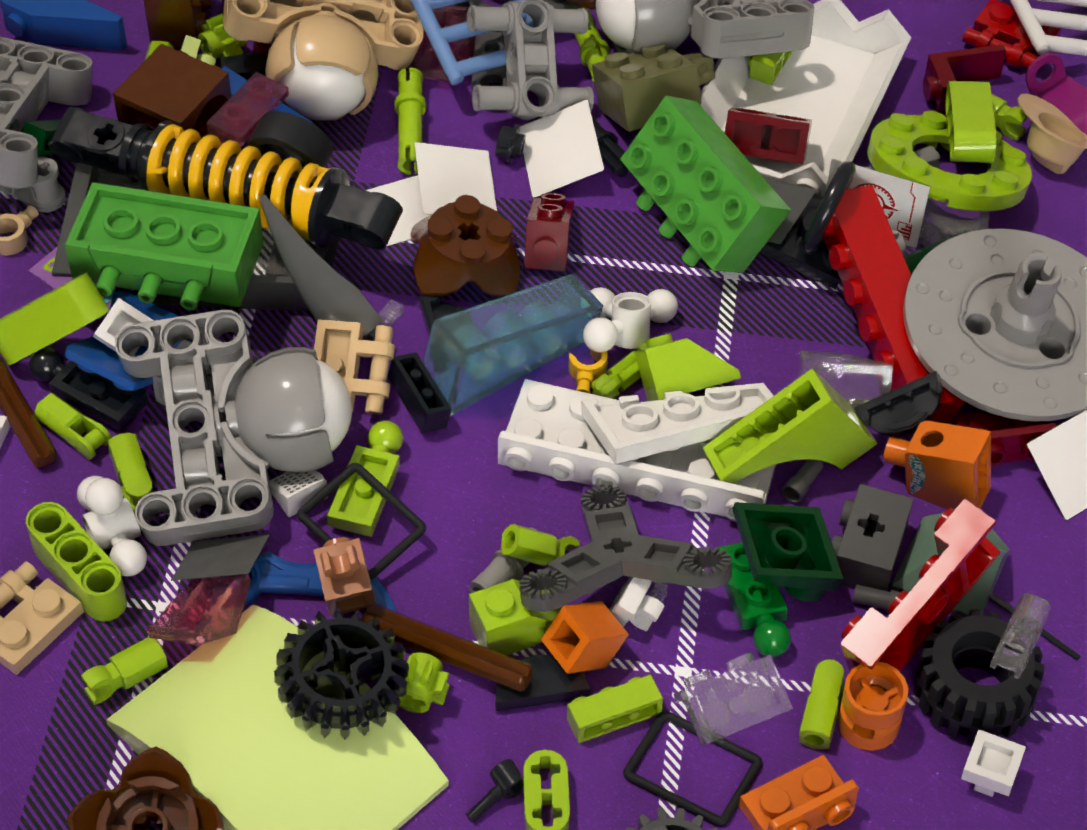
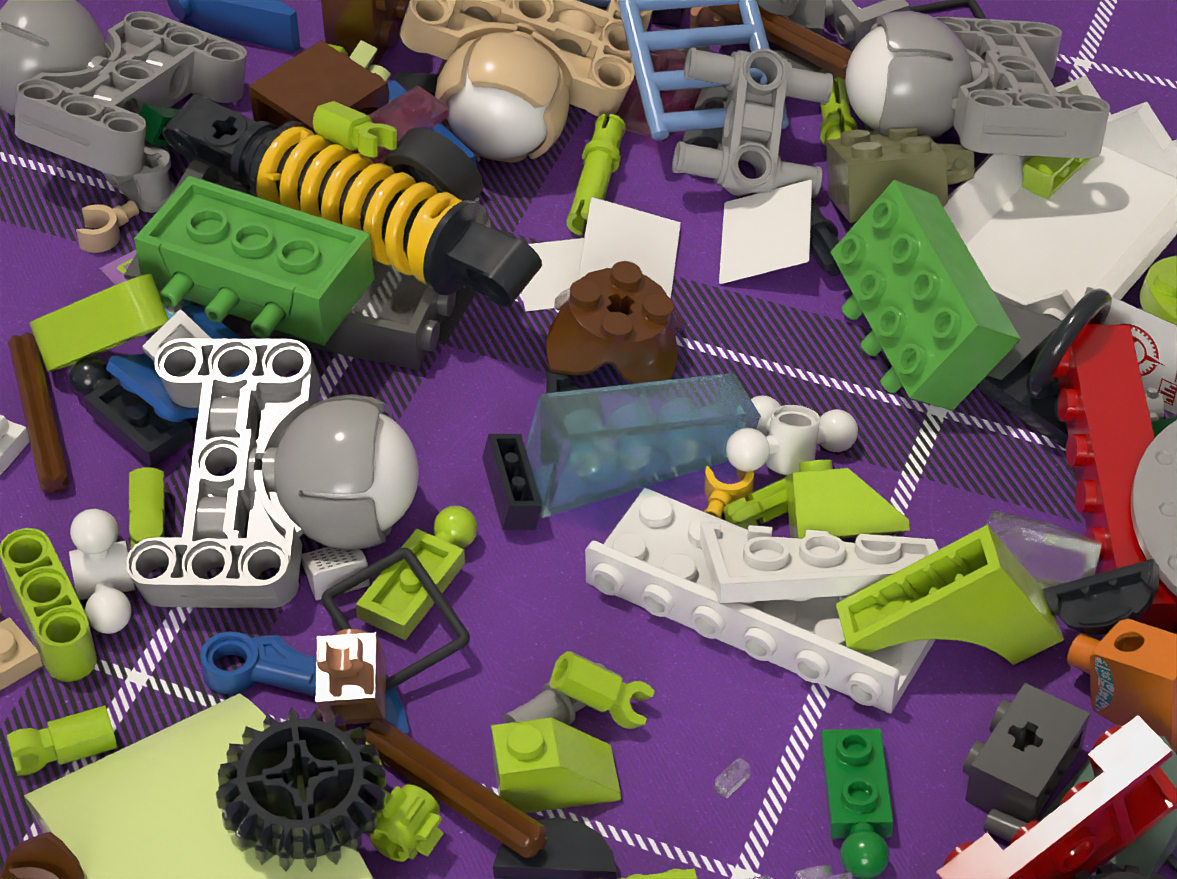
camera: 15 degrees right, 5 degrees down
(71, 424) = (95, 449): lime bar -> none
(203, 611) = (177, 688): clear pink slope -> none
(216, 40) = (398, 57): lime gear -> none
(219, 121) = (353, 129): none -> lime bar
(221, 557) = (214, 629): dark grey sticker -> none
(319, 285) = (433, 352): dark grey piece -> none
(342, 345) = (427, 416): tan plate -> none
(391, 312) = (507, 387): clear piece -> none
(510, 143) = (707, 216): black plate -> none
(548, 233) = (720, 324): dark red bracket -> none
(584, 637) = (623, 806): orange brick -> none
(618, 552) = (692, 709): dark grey piece -> none
(636, 606) = (700, 780): white tile -> none
(769, 134) = (1021, 251): dark red brick -> none
(789, 548) = (911, 745): dark green slope -> none
(798, 485) = (951, 673): dark grey piece -> none

